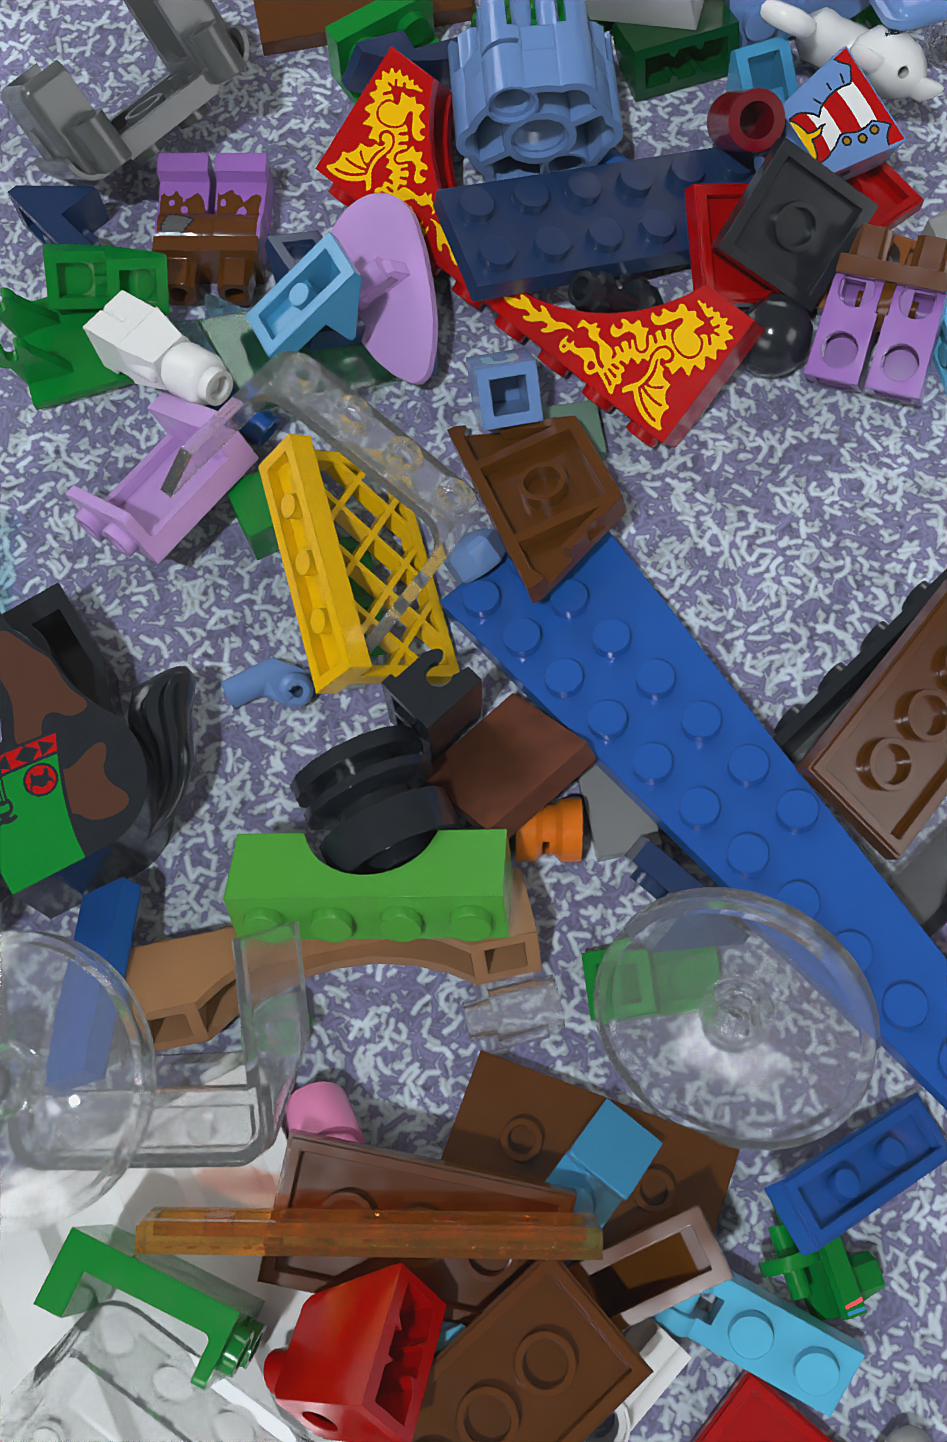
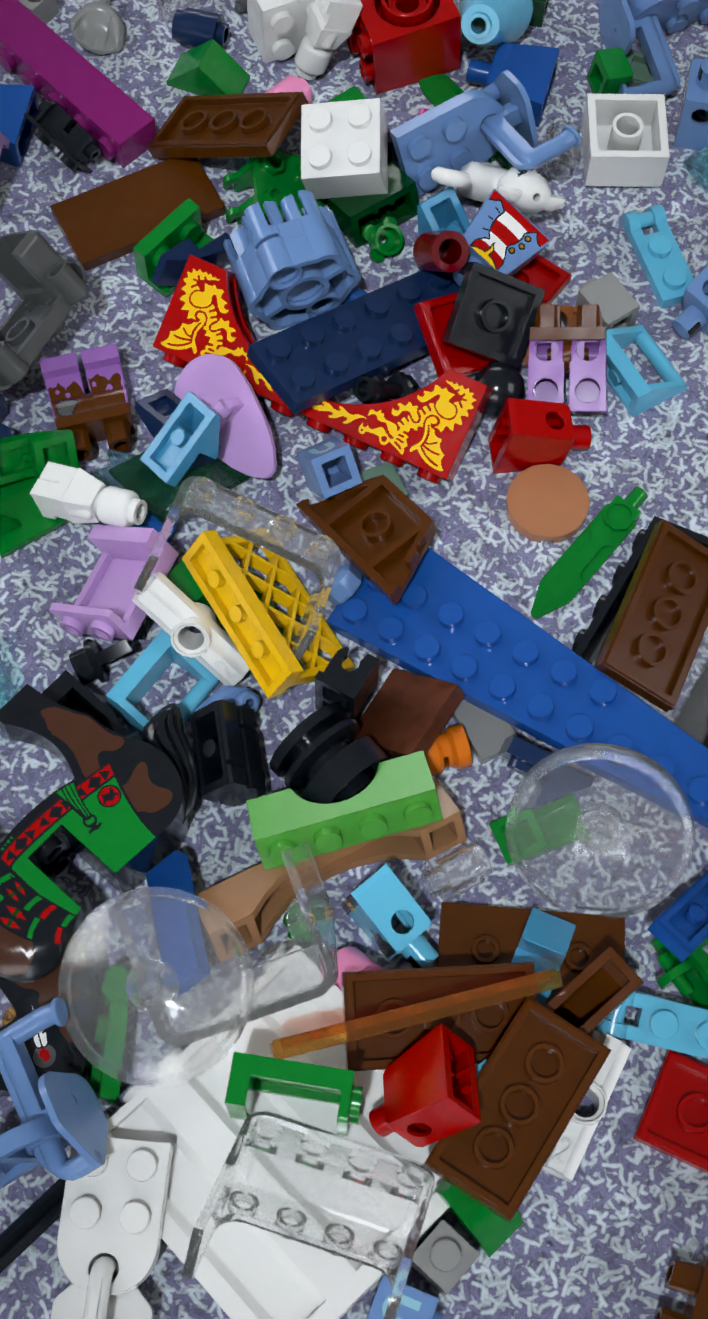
camera: 20 degrees left, 5 degrees down
(105, 580) = (90, 662): none -> black piece
(172, 612) = (147, 671): none -> medium azure tile
(241, 565) = (175, 612): none -> white piece
(243, 756) = (227, 753): none -> black brick
(378, 1035) = (383, 899): none -> medium azure torso
(688, 104) = (394, 239): none -> green plate
(799, 511) = (547, 503): none -> nougat tile
(807, 411) = (534, 435): none -> red torso
(837, 596) = (588, 553): none -> green piece

